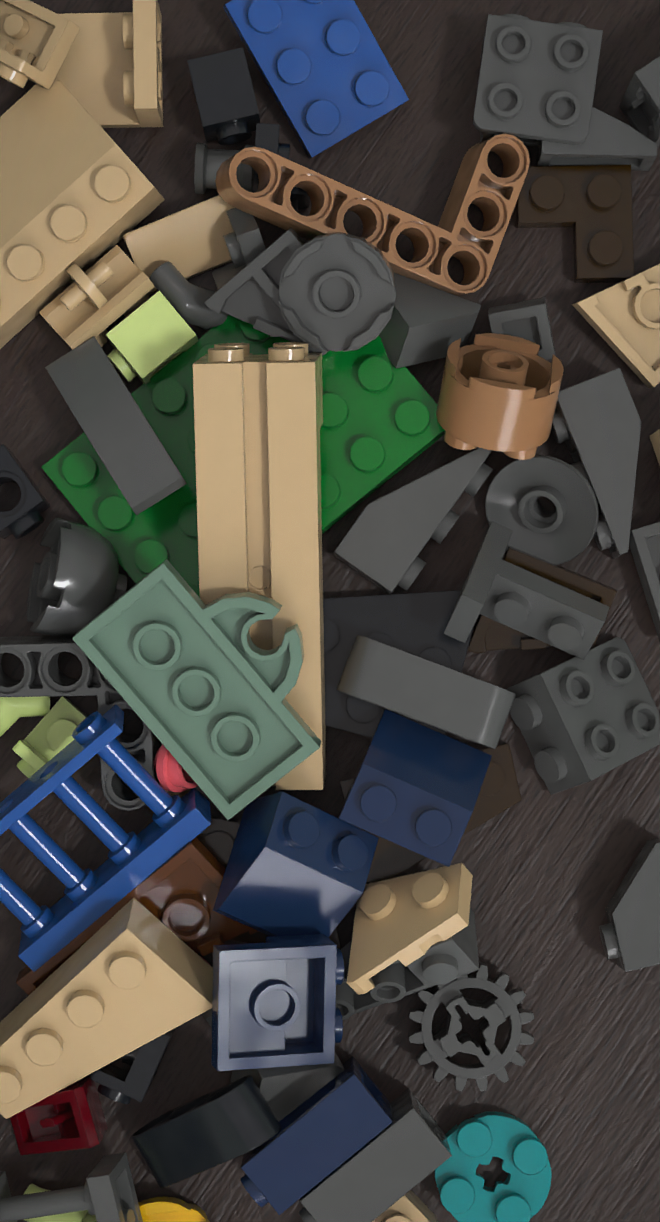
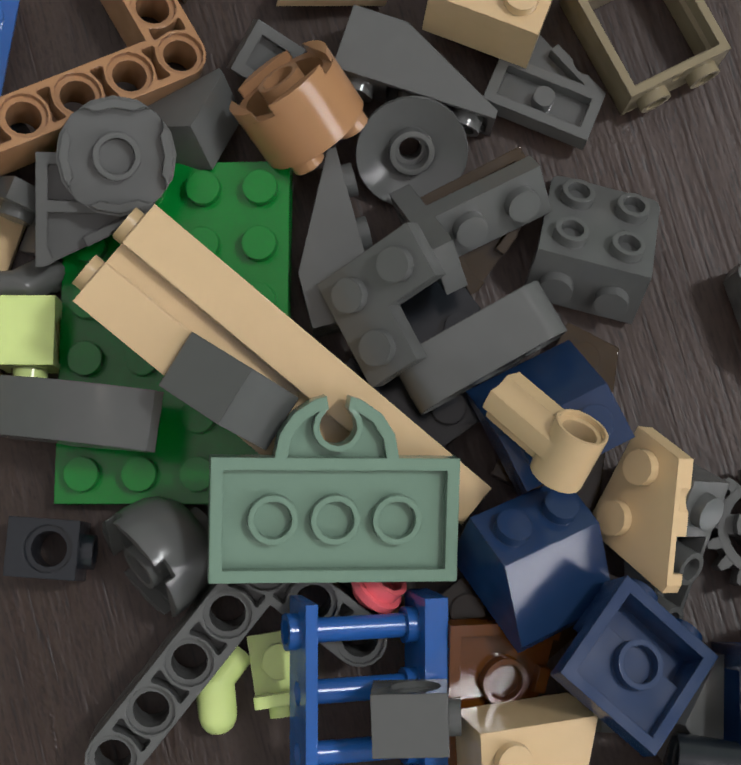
camera: 55 degrees left, 5 degrees down
(99, 870) = (413, 718): none -> dark grey brick
(222, 533) = (228, 391): none -> dark grey slope
(385, 578) = (368, 299): none -> dark grey plate
(392, 811) = (558, 439): none -> tan piece

